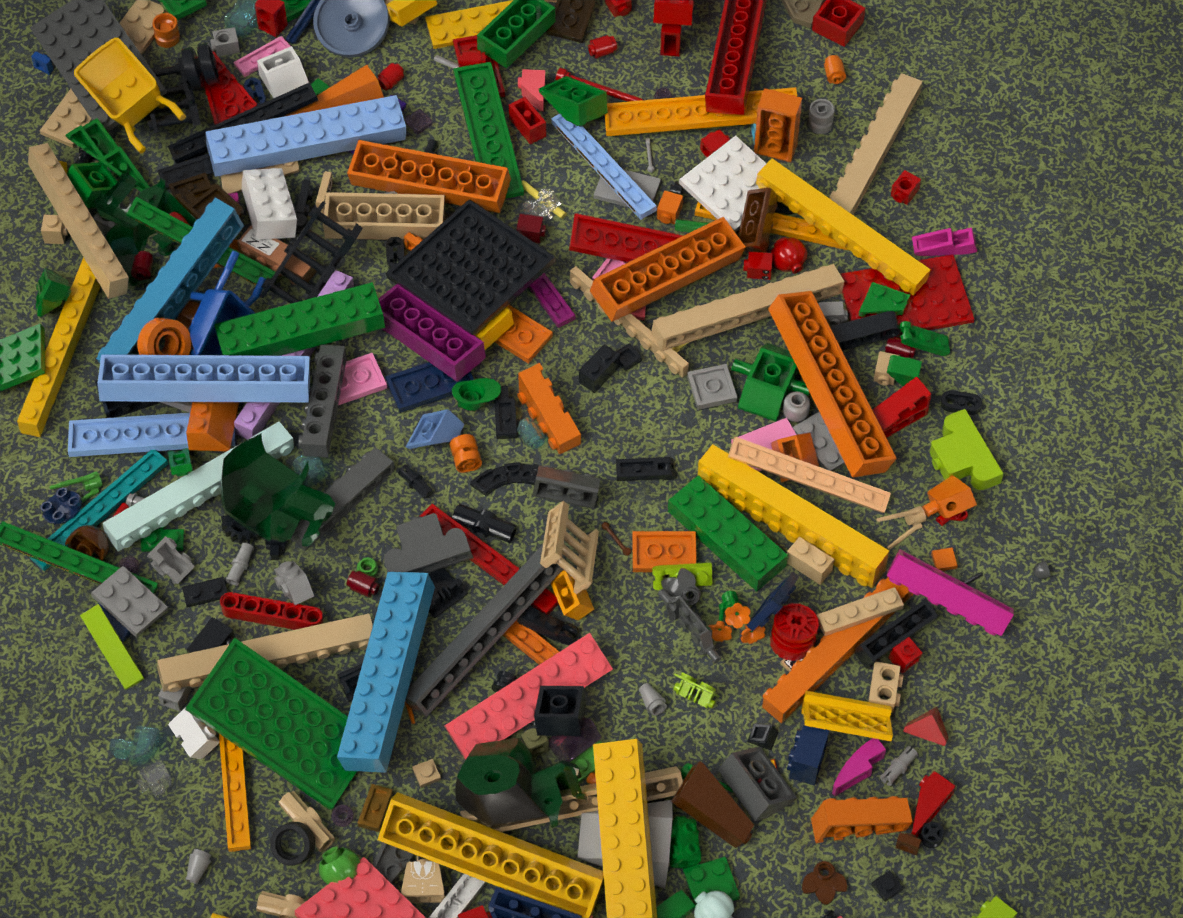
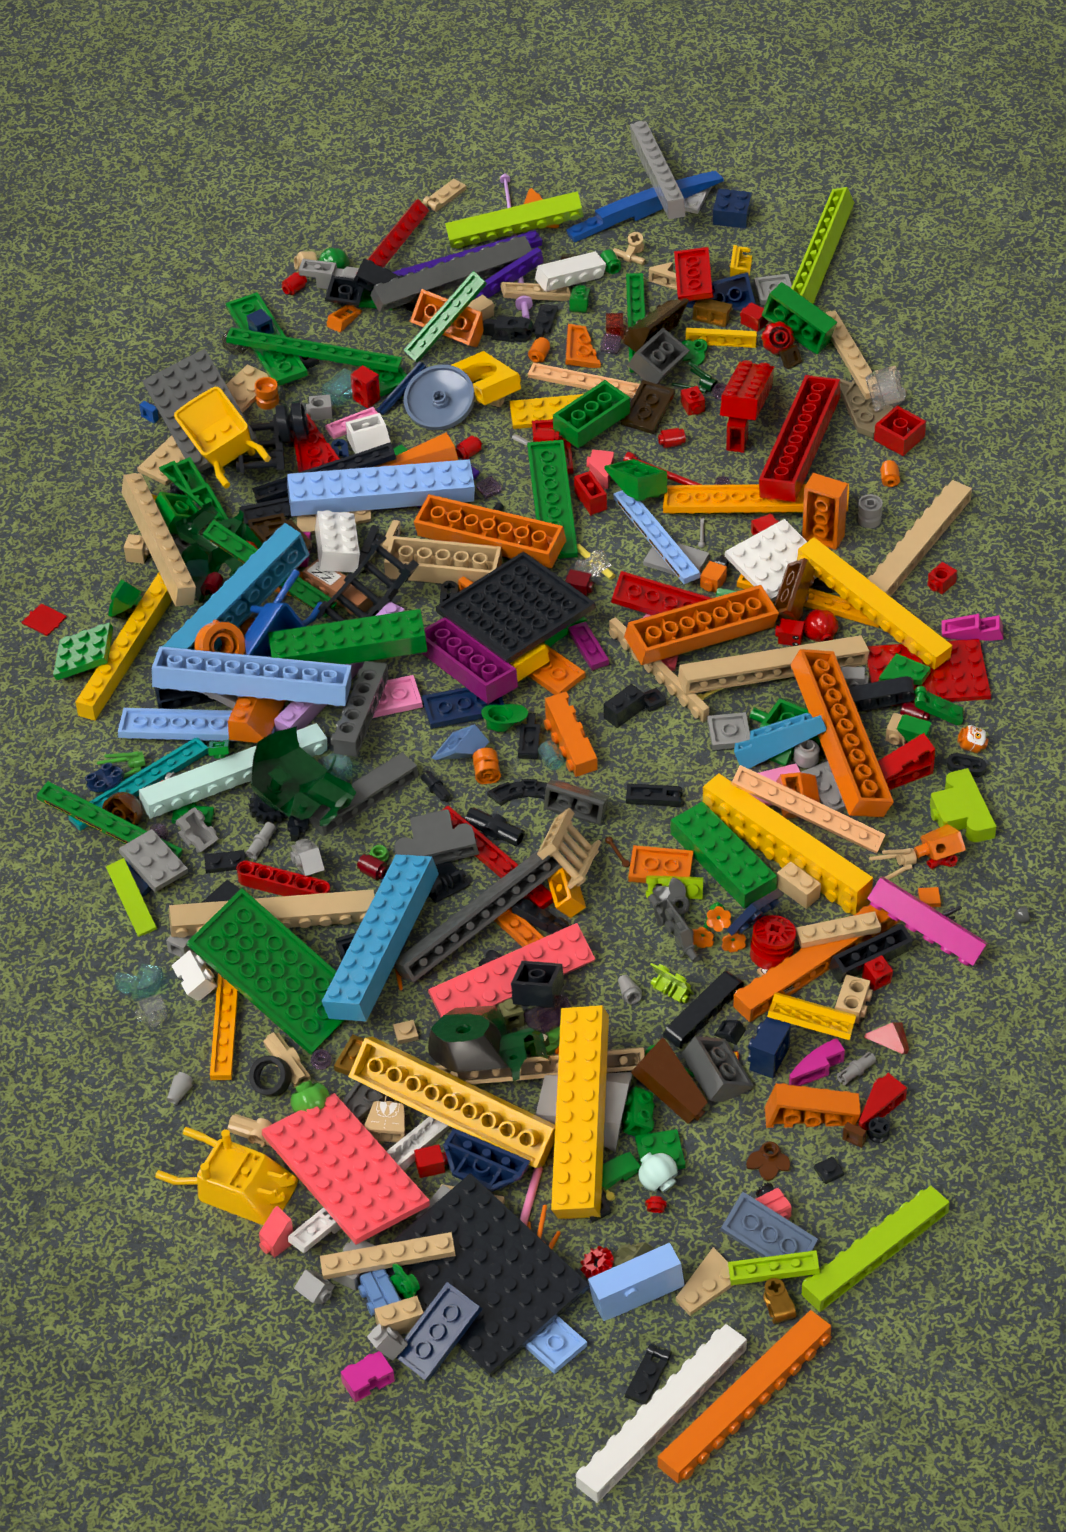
camera: 10 degrees right, 10 degrees down
(731, 714) = (705, 1006): none -> black beam
(765, 395) = (777, 738): none -> dark azure wedge
(963, 372) = (972, 739): none -> orange head

